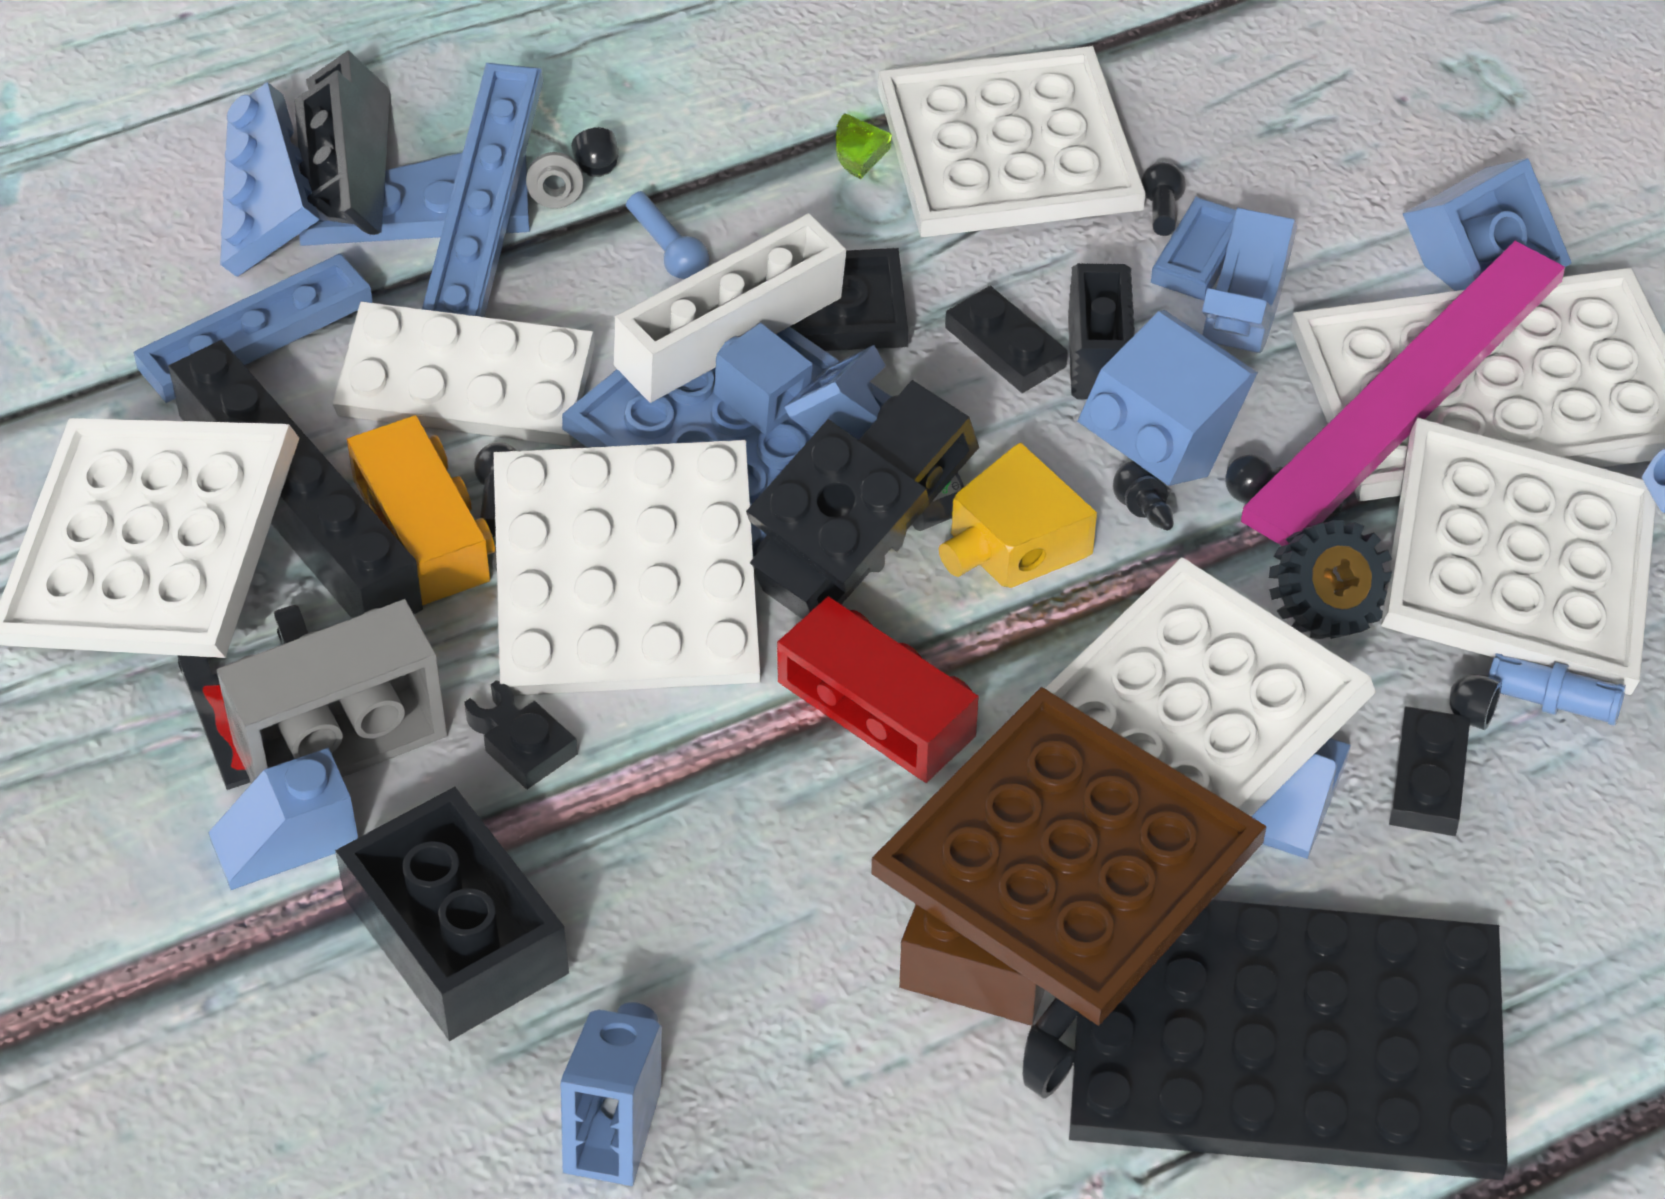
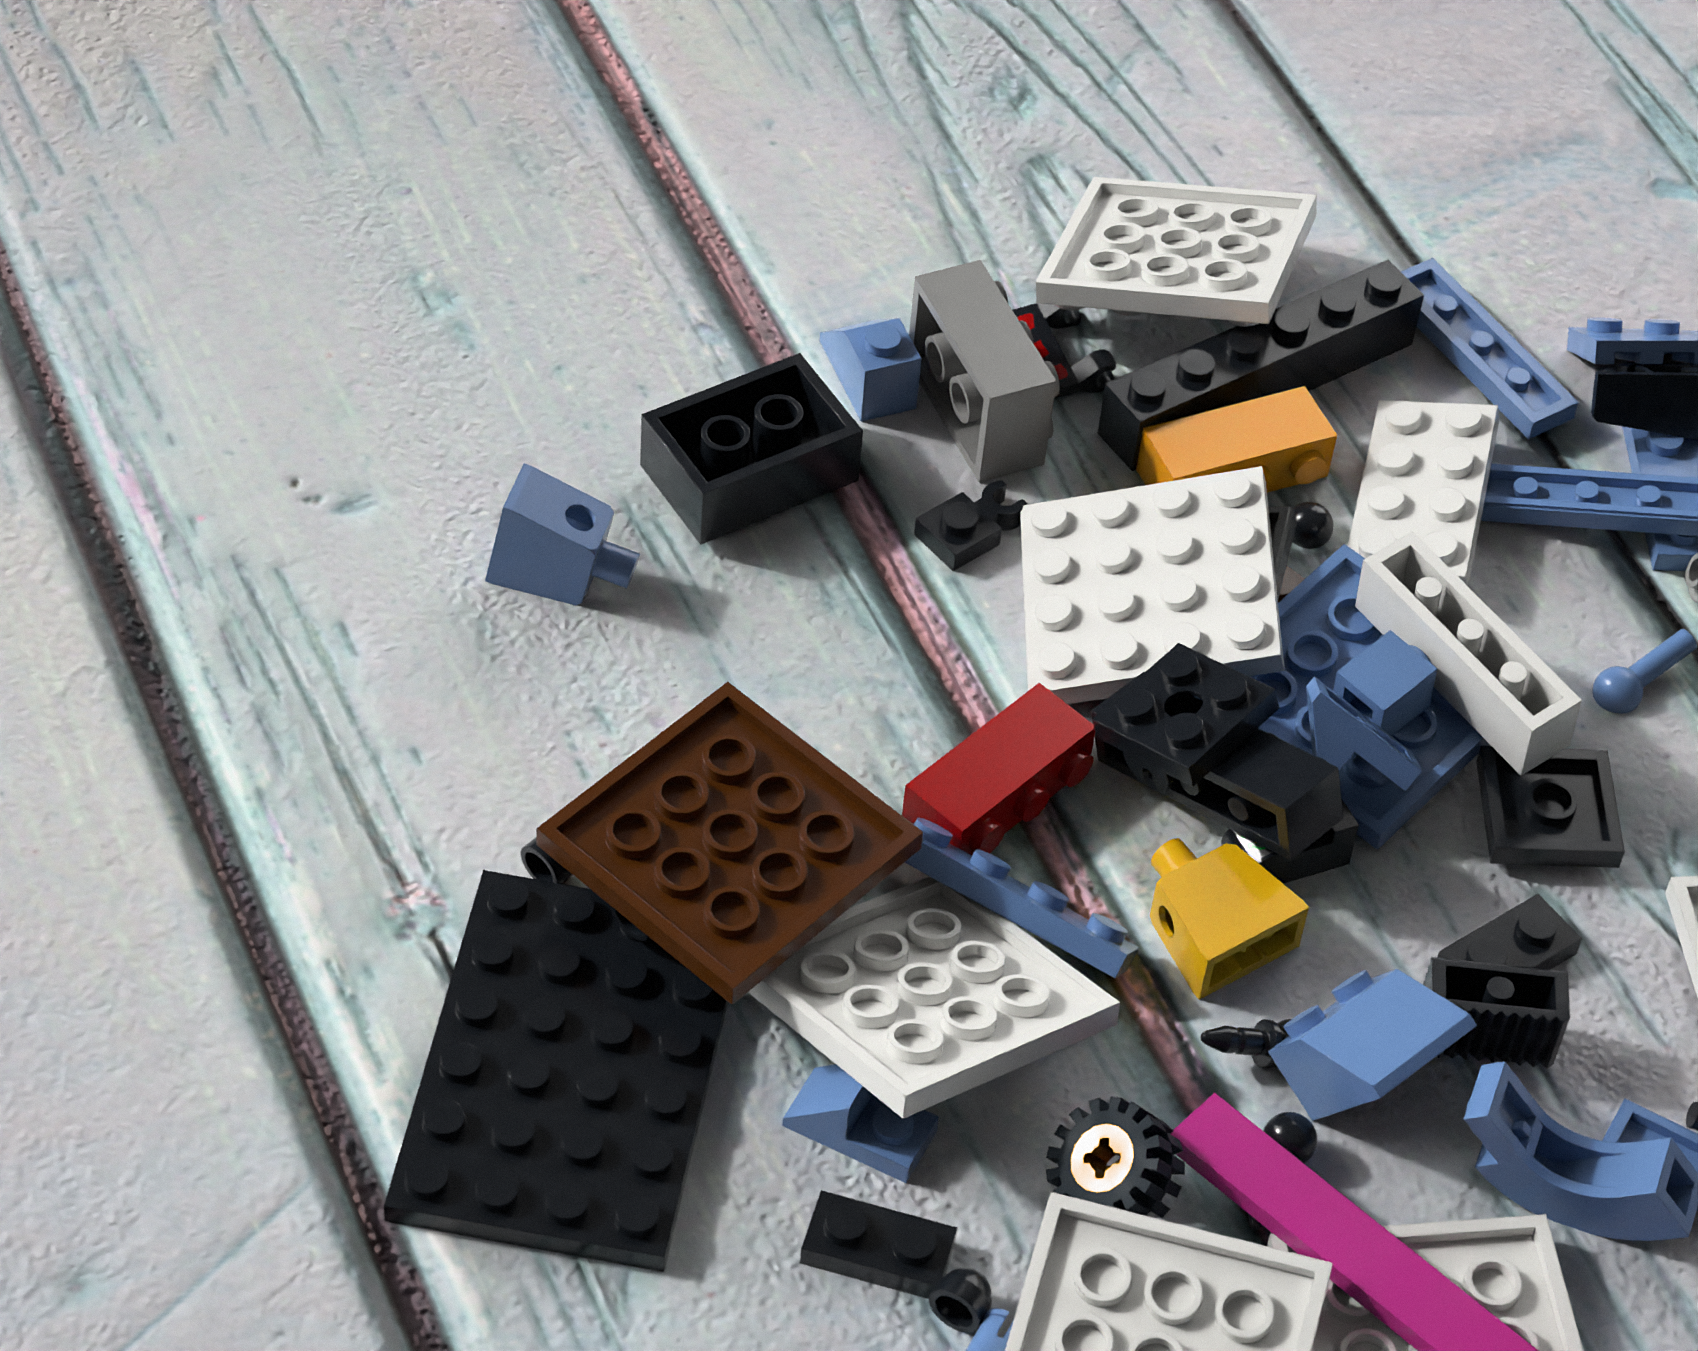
camera: 90 degrees right, 0 degrees up
(1043, 656) = (1034, 908): none -> medium blue plate

